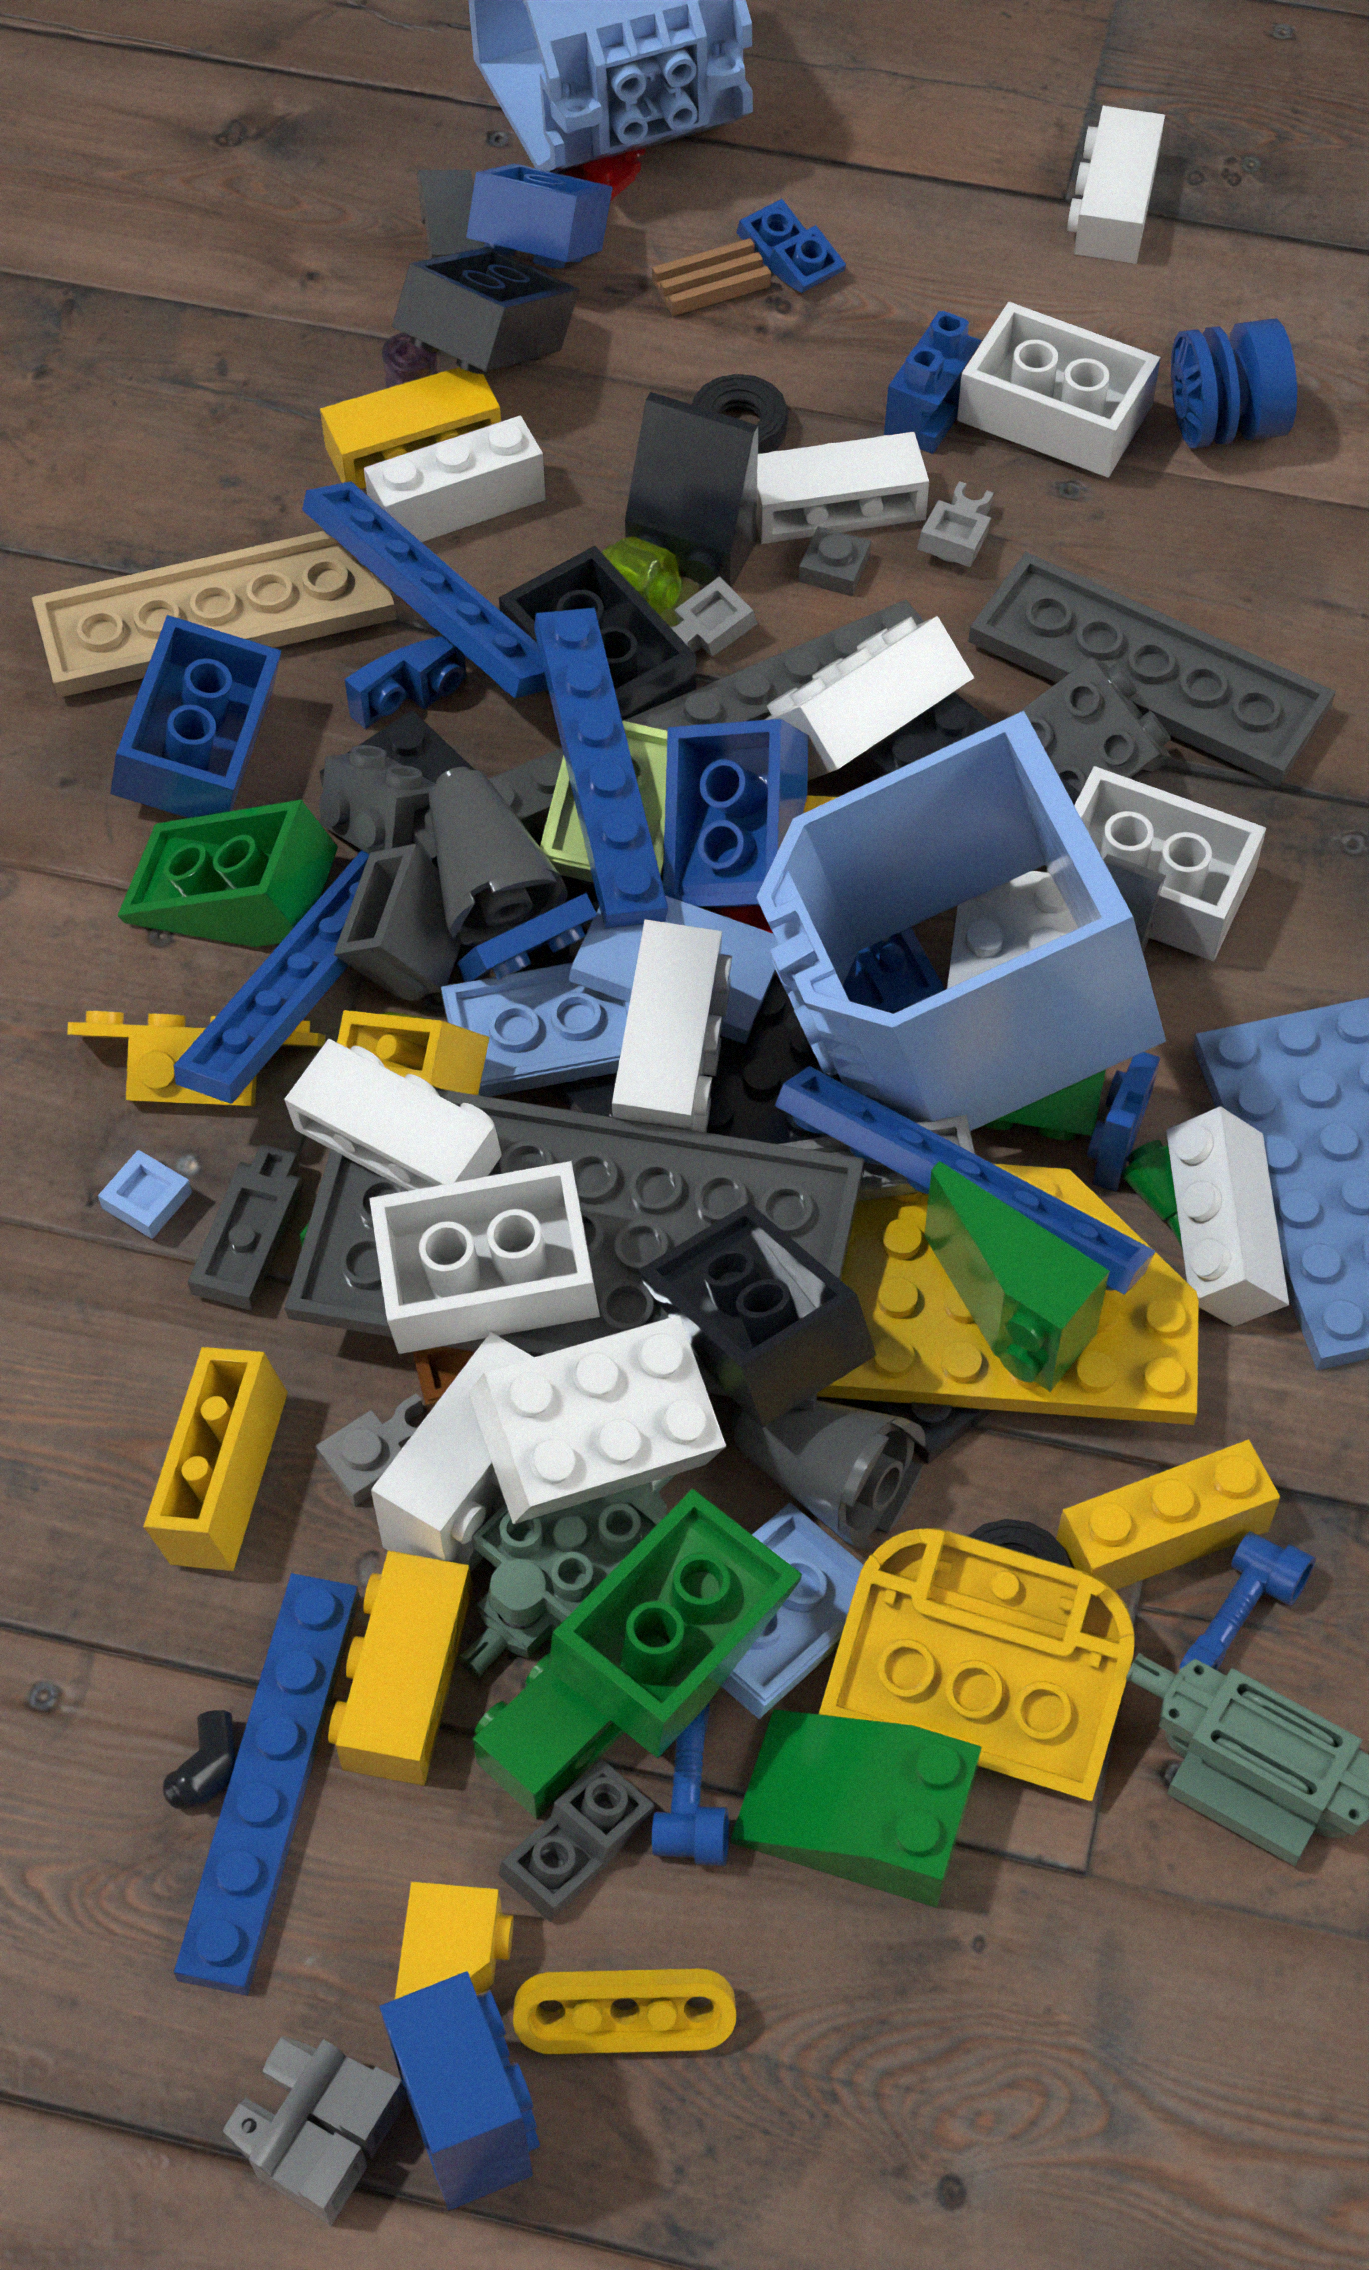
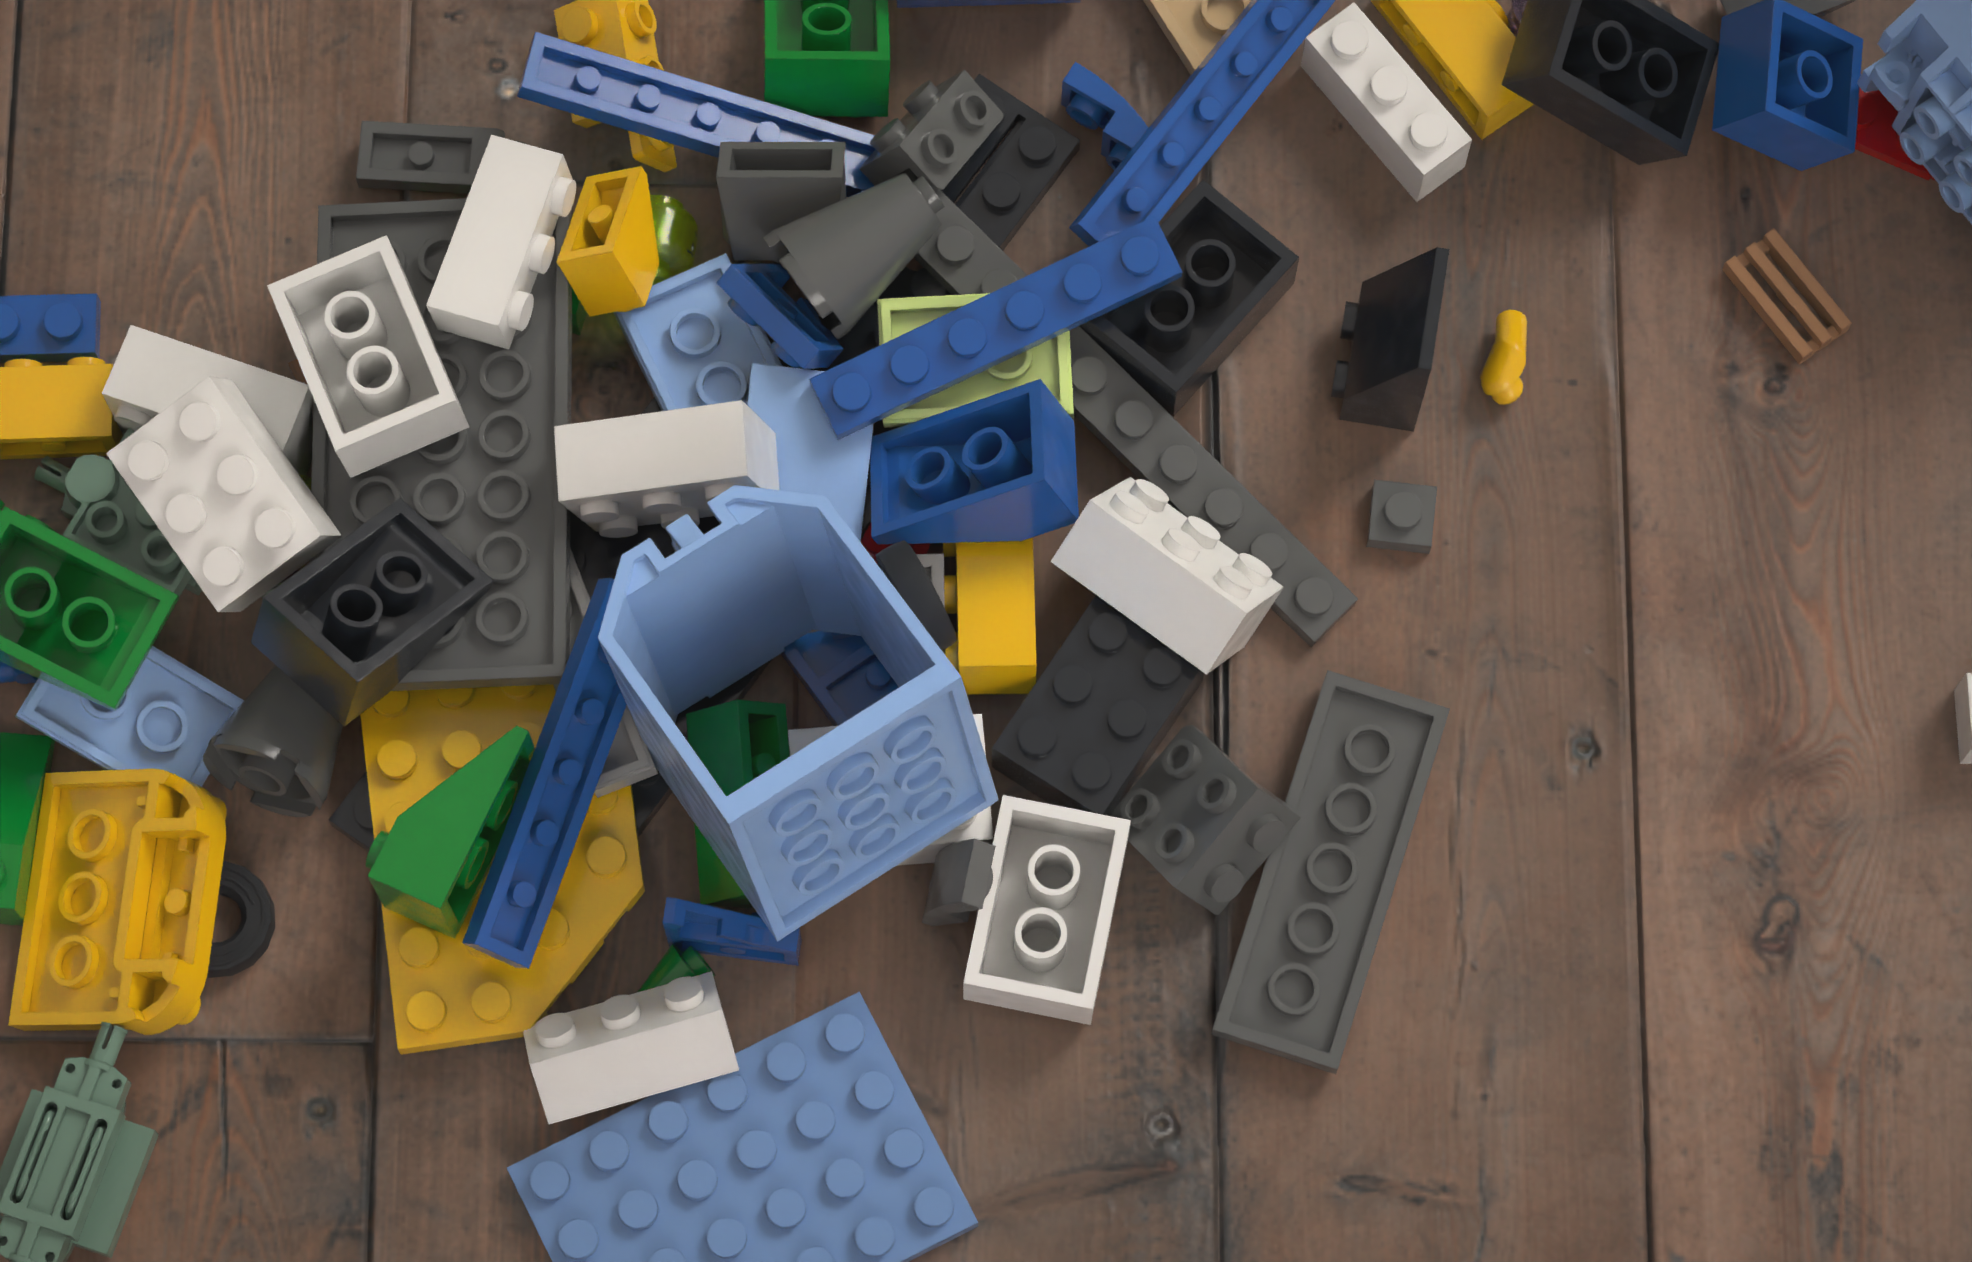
camera: 75 degrees right, 15 degrees up
(145, 1194) = (453, 57): light blue plate -> none
(216, 1459) = (179, 196): yellow brick -> none
(366, 1448) = (236, 328): light grey plate -> none
(648, 569) = (1308, 318): clear neon green head -> none
(713, 618) = (1270, 405): light grey plate -> none
(752, 394) = (1585, 336): black tyre -> none
(788, 249) = (1856, 371): blue slope -> none
(840, 487) = (1495, 494): white brick -> none
(927, 386) = (1656, 552): blue hips -> none
(957, 529) = (1470, 633): light grey plate -> none
(1058, 389) = (1692, 699): white brick -> none
(1170, 1517) = (293, 1044): yellow brick -> none
(1234, 383) = (1741, 883): blue wheel -> none
(1264, 1570) = (270, 1147): blue brick -> none

